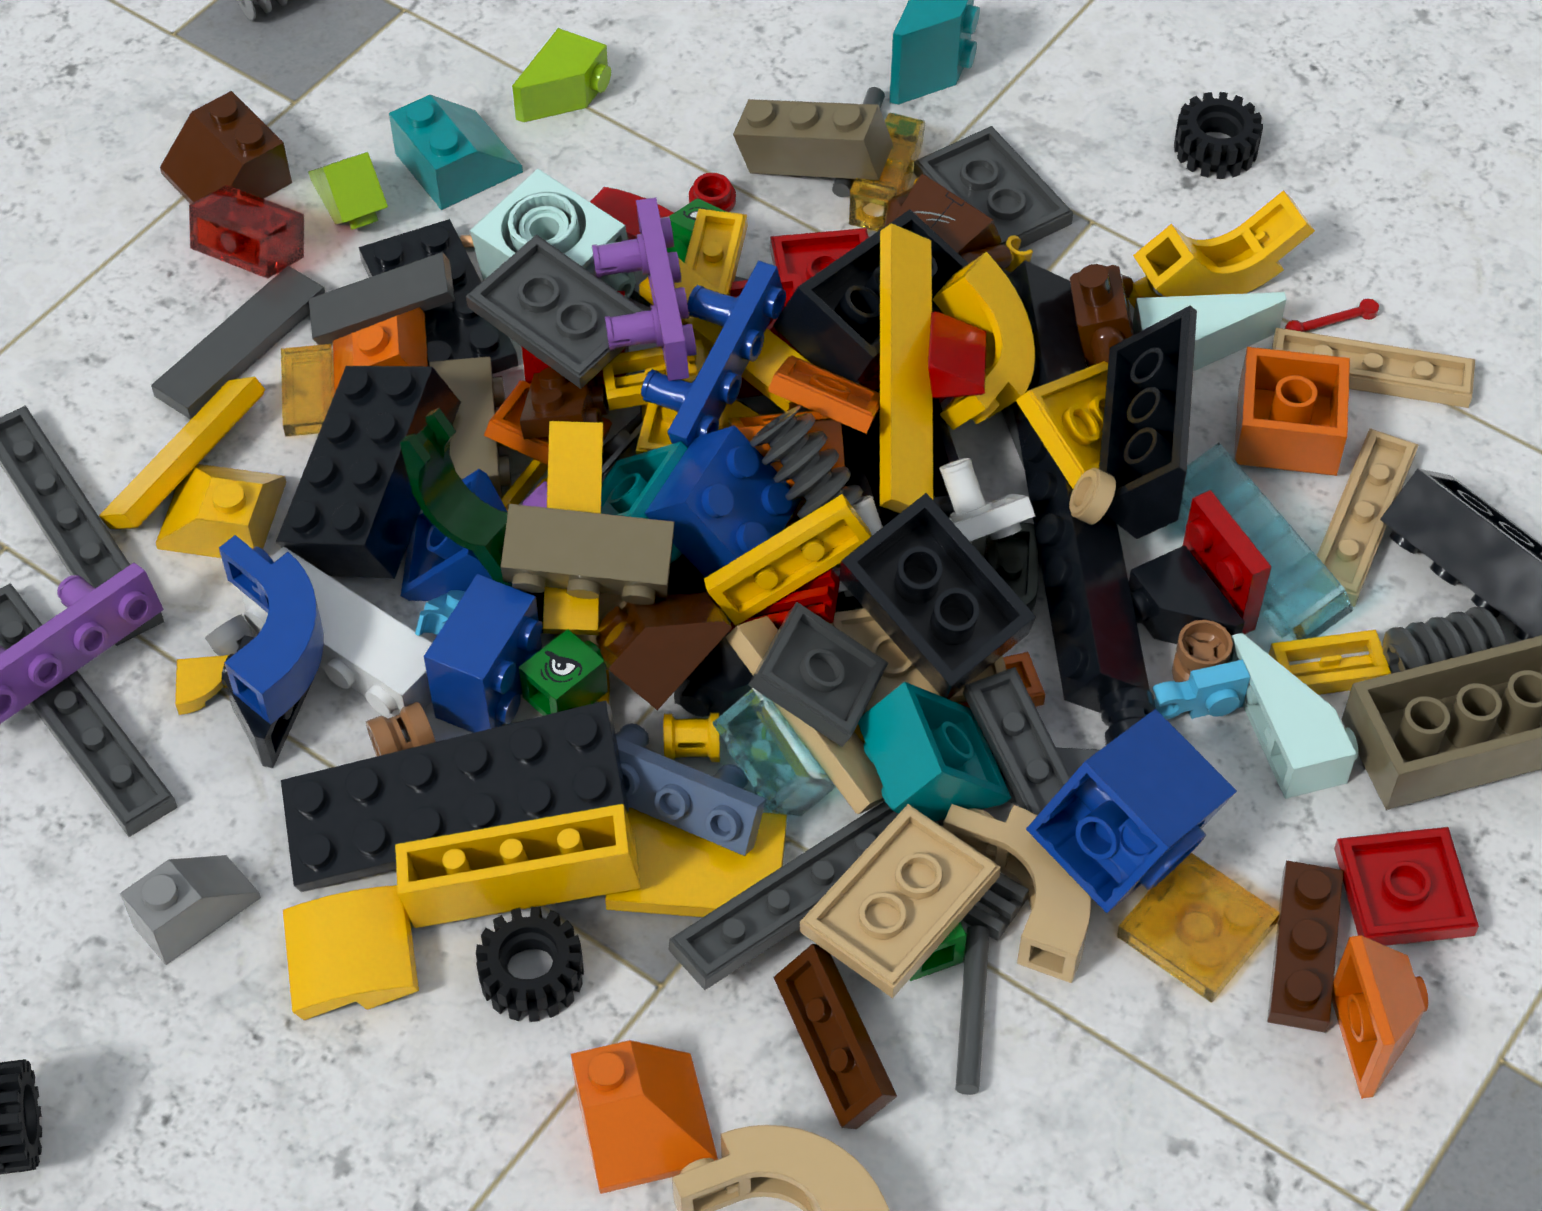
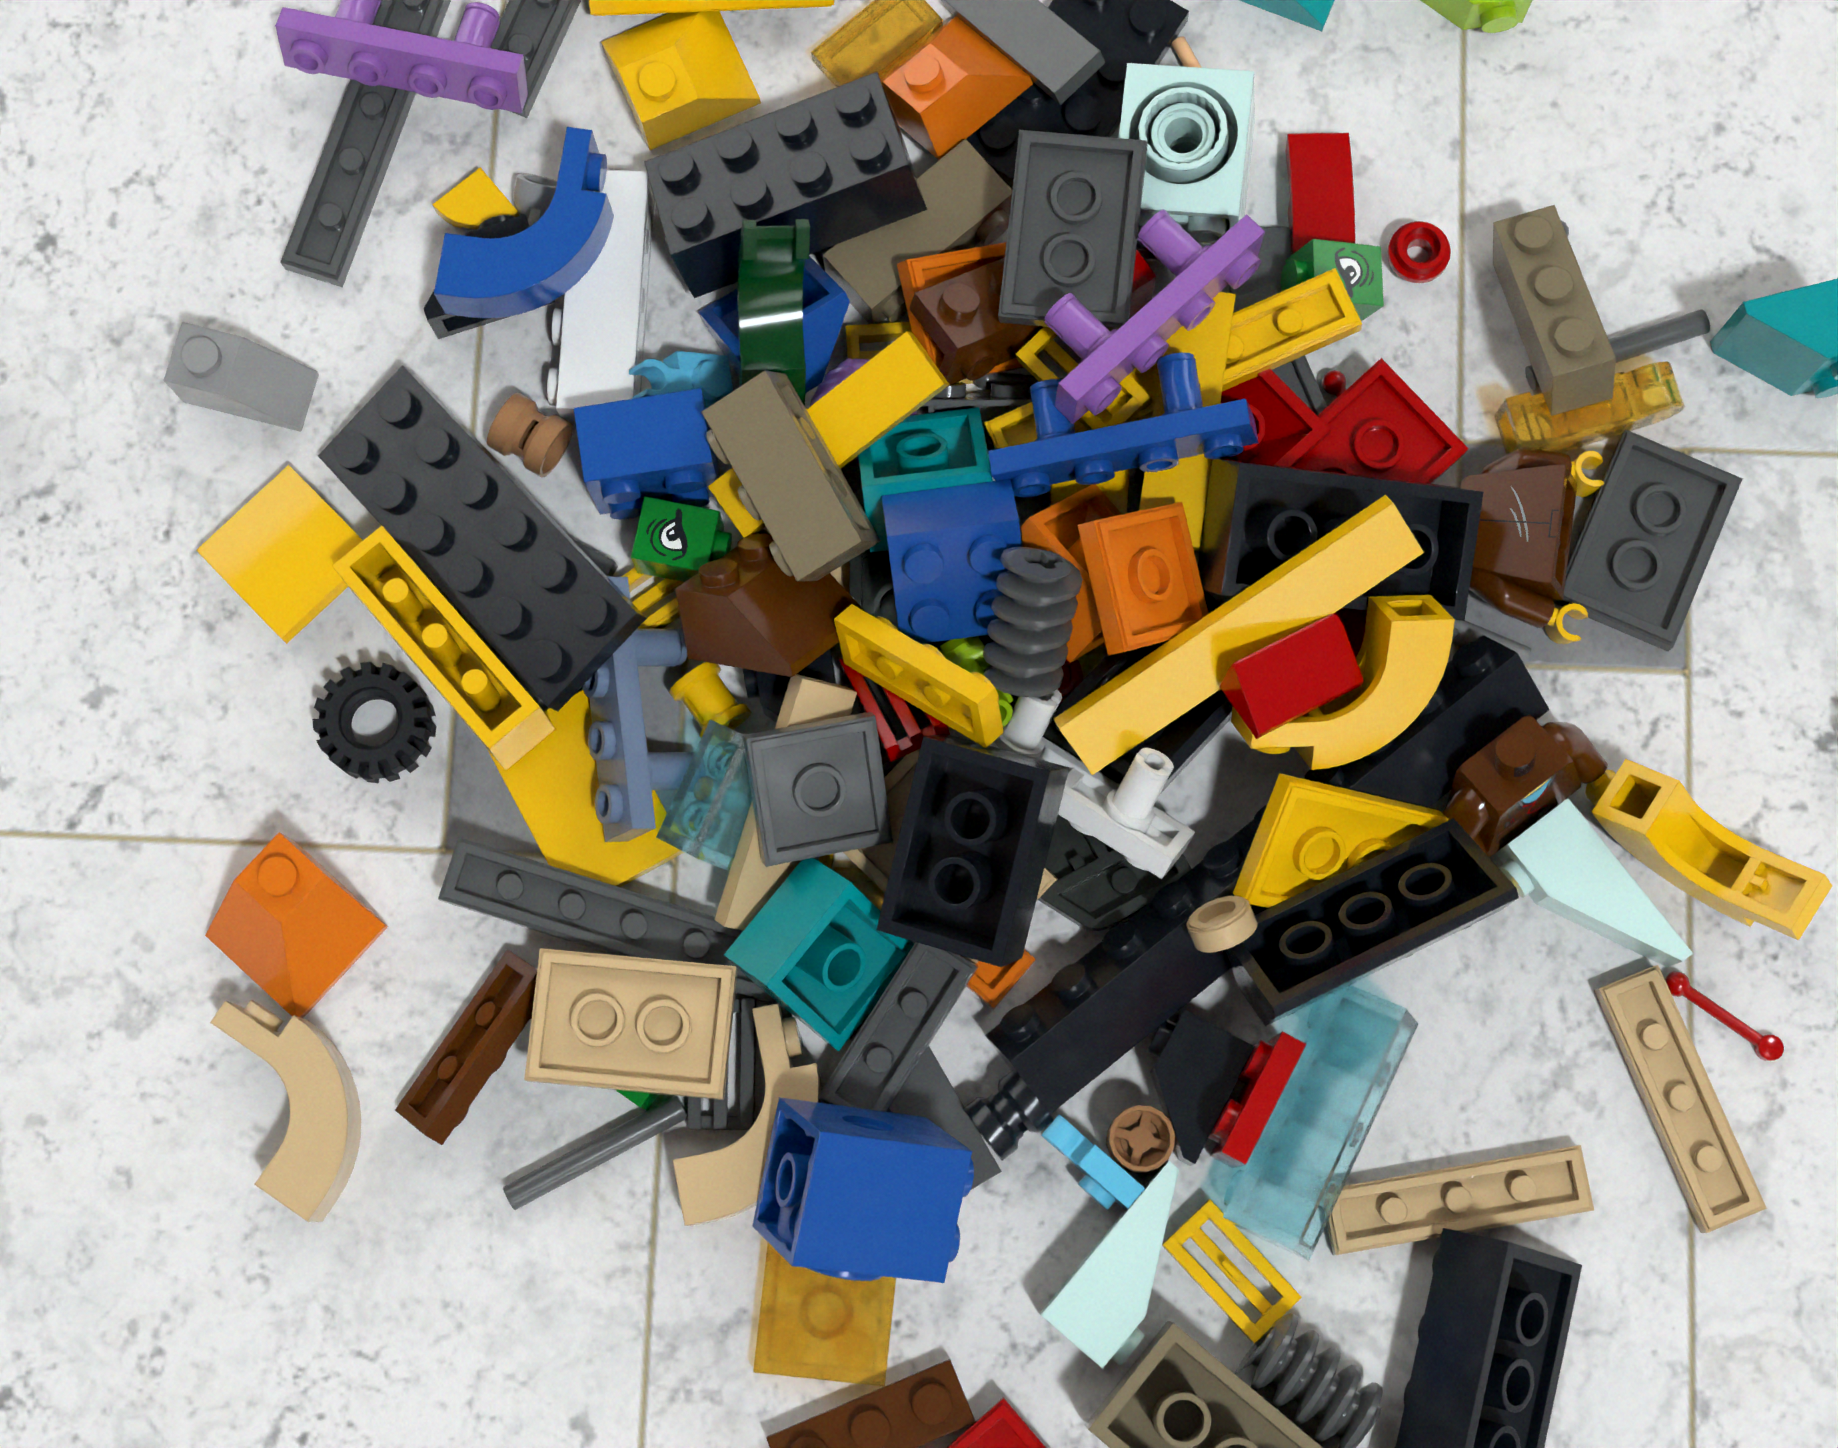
camera: 60 degrees right, 25 degrees up
(1292, 411) = (1530, 1054): orange brick -> none

